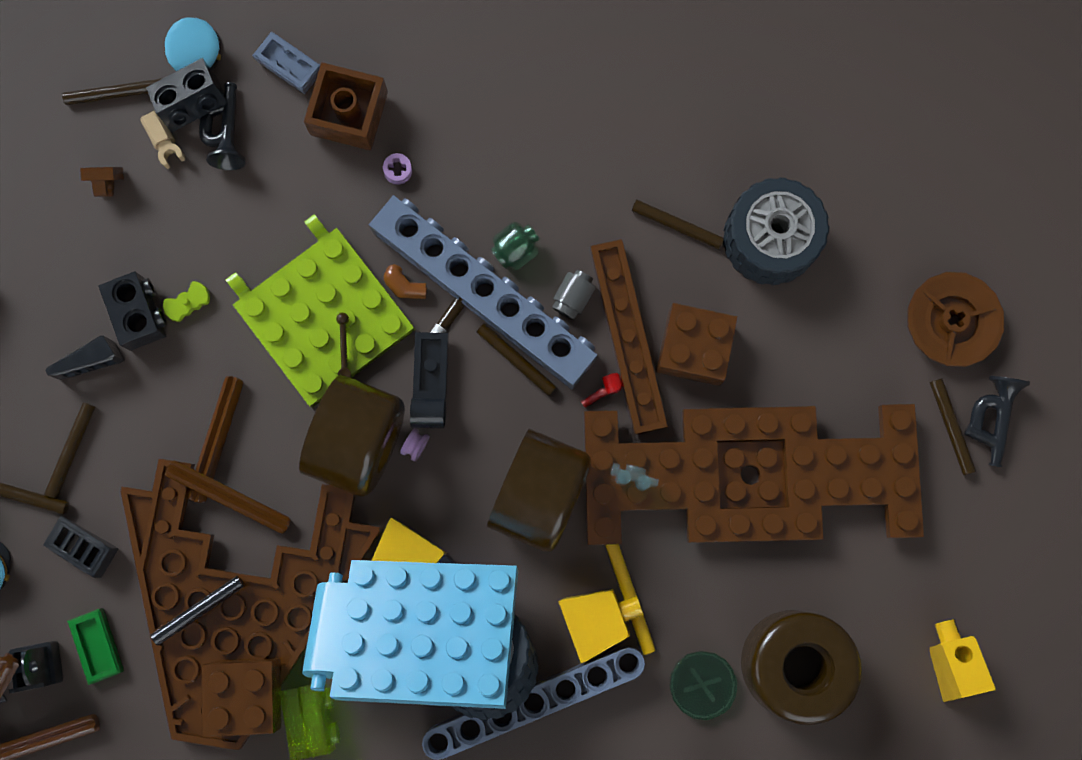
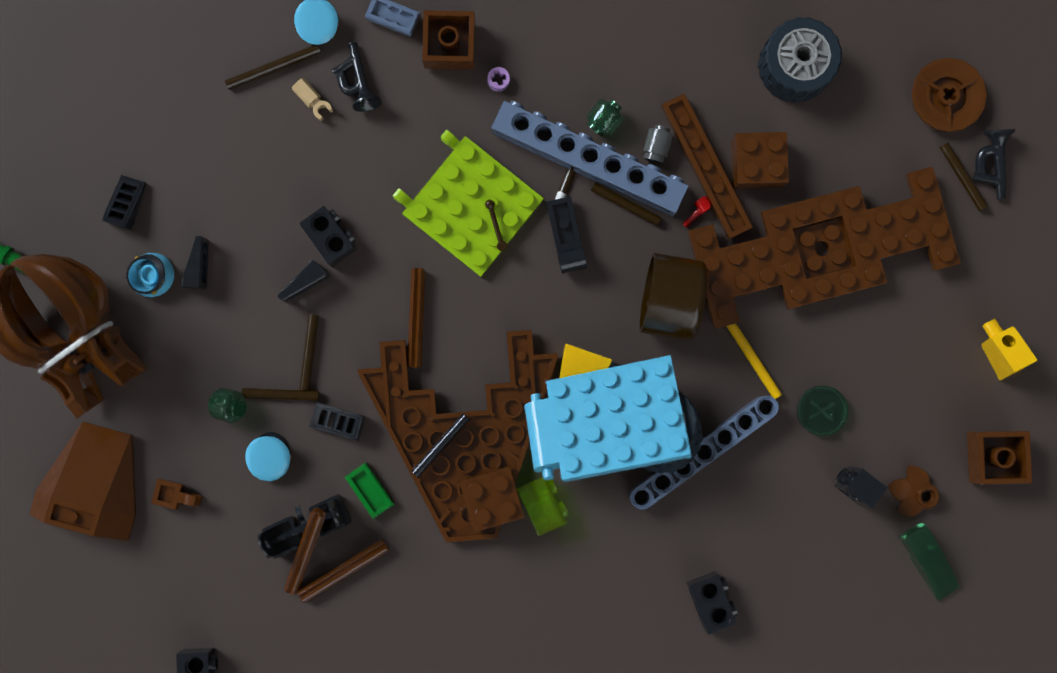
camera: 15 degrees left, 5 degrees up
(102, 179) = (276, 140): reddish brown tile -> none
(186, 95) = (323, 60): black brick -> none
(186, 302) = (369, 217): lime piece -> none
(227, 496) = (439, 357): reddish brown axle -> none
(352, 436) = (525, 290): dark brown piece -> none
(401, 286) = (524, 168): dark orange arm -> none
(414, 444) = (567, 286): lavender bush -> none
(598, 620) = (736, 382): yellow torso -> none
(633, 474) = (738, 268): clear light blue piece -> none
(677, 224) = (722, 71): dark brown bar -> none
(808, 703) = (865, 384): dark brown piece -> none

